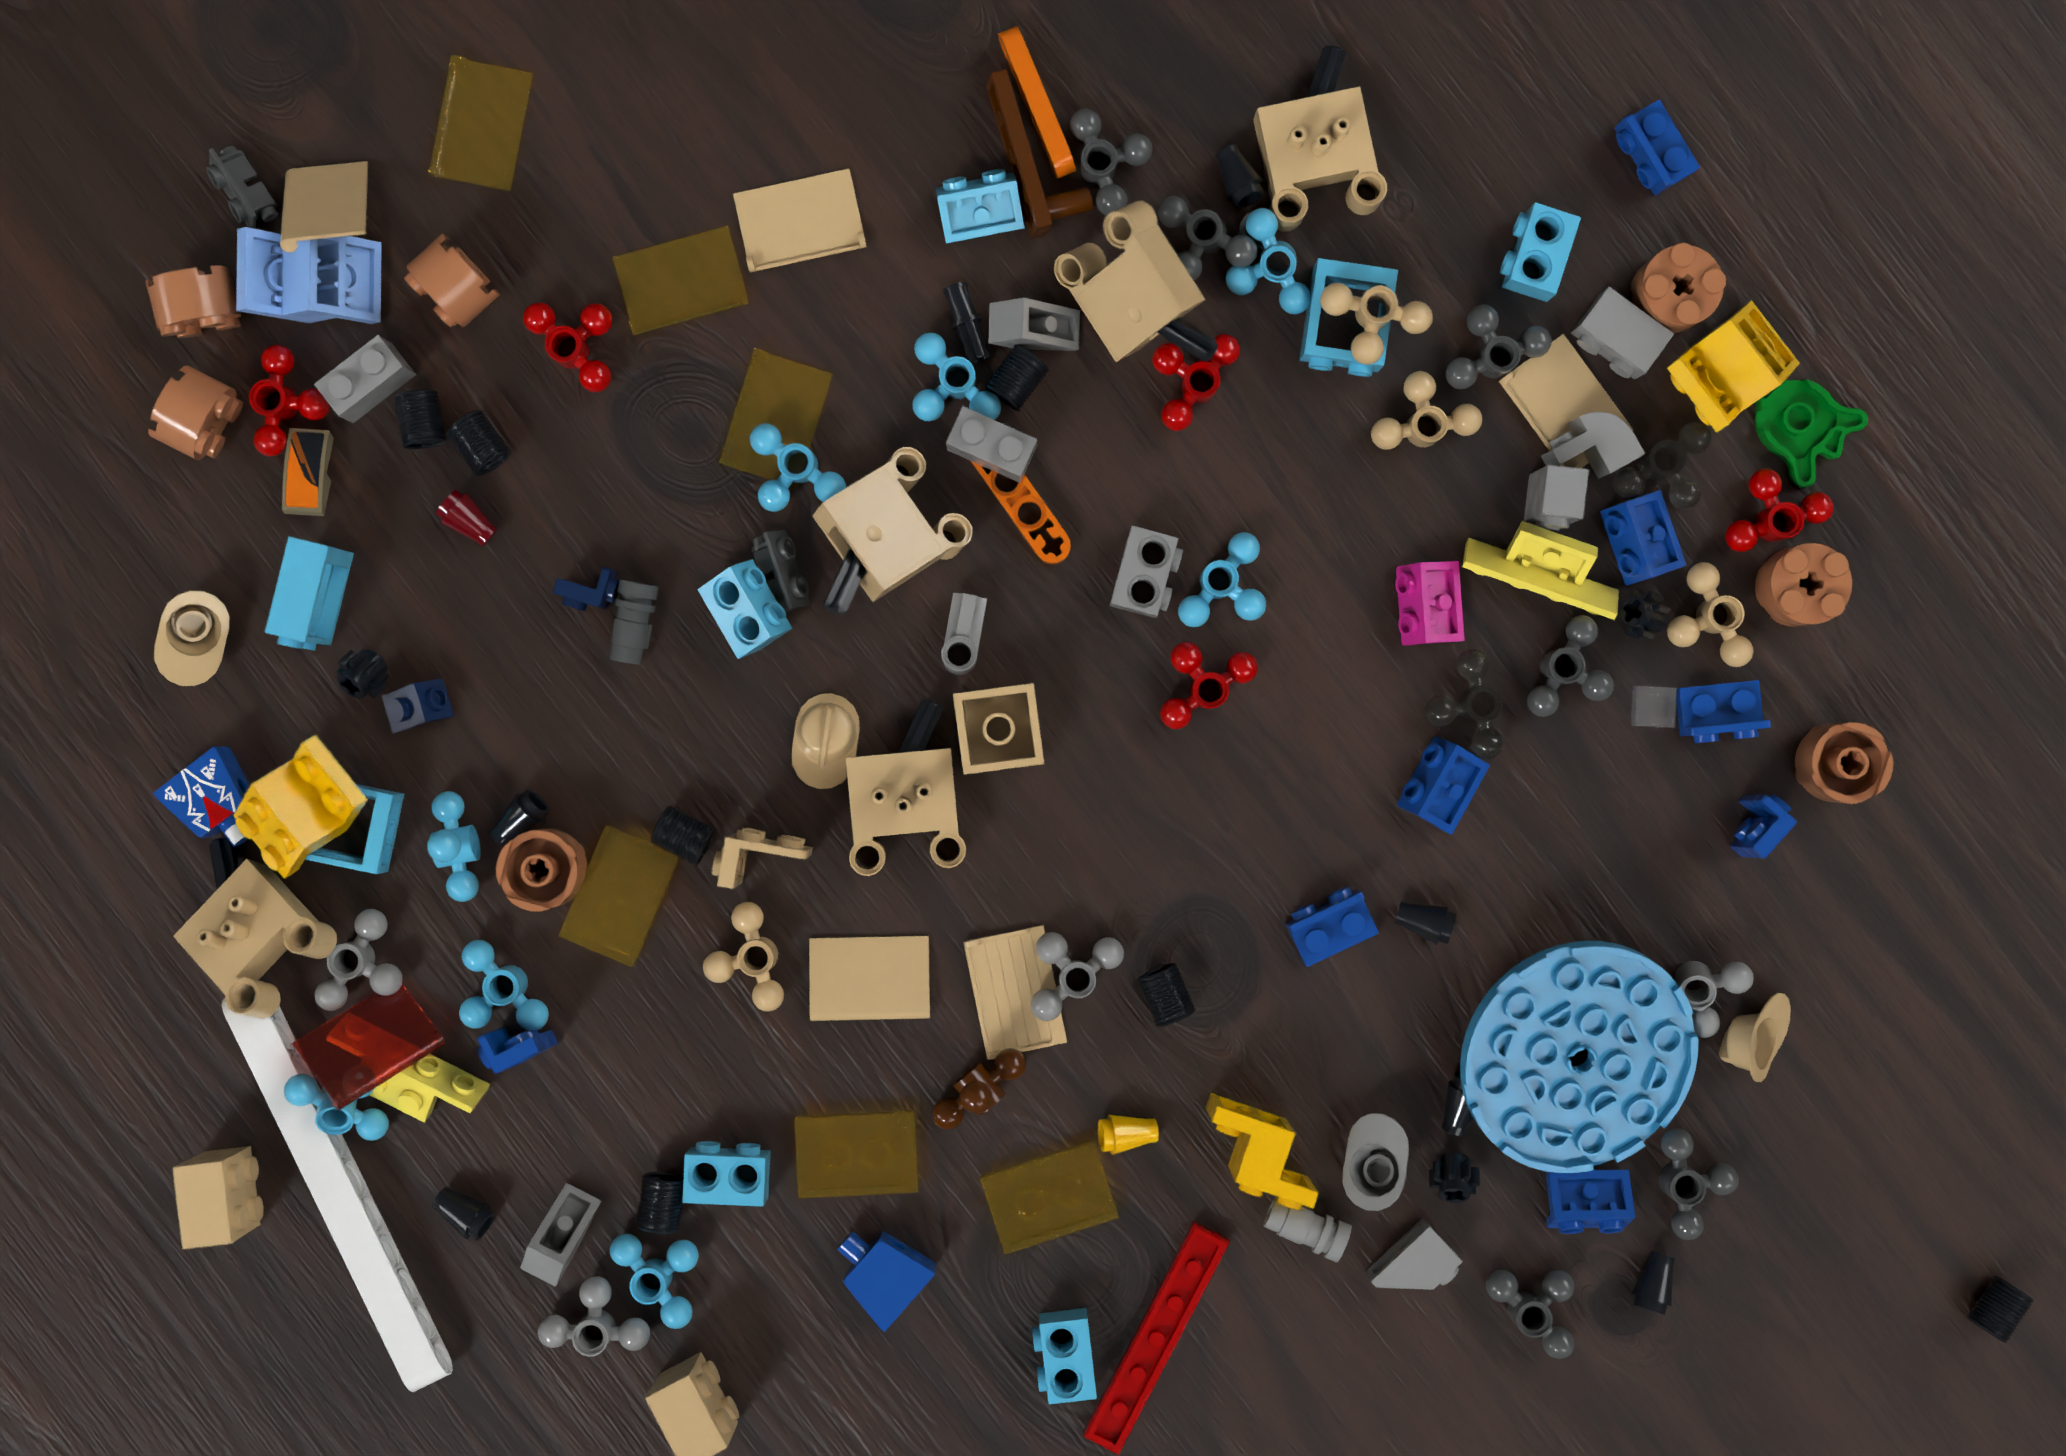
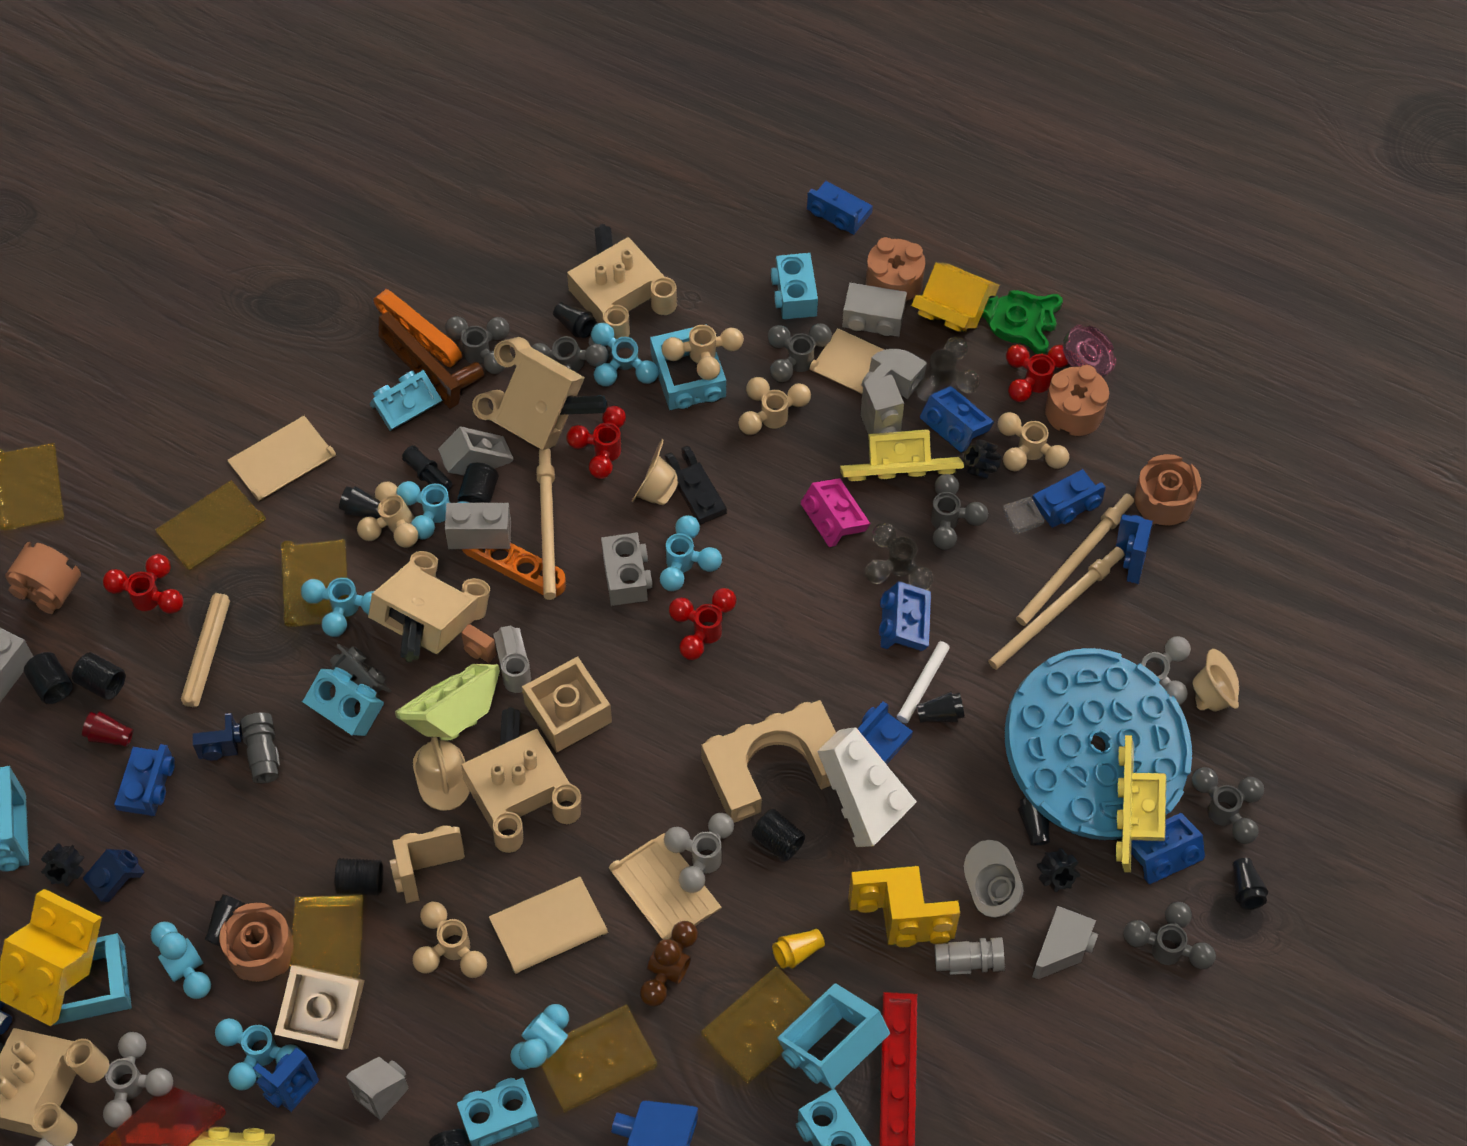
camera: 30 degrees left, 30 degrees down
(489, 601) = (145, 780): none -> blue bracket
(580, 980) = (319, 1007): none -> tan brick
(611, 1094) = (378, 1085): none -> light grey slope
(615, 457) = (205, 650): none -> tan axle
(803, 1122) = (542, 1038): none -> medium azure piece
(862, 668) = (452, 703): none -> yellowish green wedge
(866, 376) = (393, 514): none -> tan piece
(869, 337) = (359, 503): none -> black cone
(929, 597) = (478, 644): none -> nougat plate
(1101, 1229) = (818, 1020): none -> medium azure window
(1106, 395) = (546, 476): none -> tan bar
(1237, 466) = (659, 481): none -> tan piece
(1259, 877) = (727, 756): none -> tan arch
(1280, 491) = (696, 487): none -> black hinge
(1286, 996) = (865, 785): none -> white wedge
(1423, 872) = (923, 682): none -> white bar
(1588, 1157) = (1143, 805): none -> light yellow bracket
(1702, 823) = (1096, 572): none -> tan bar
(1753, 761) = (1109, 520): none -> tan bar
(1857, 520) = (1089, 347): none -> clear pink tile

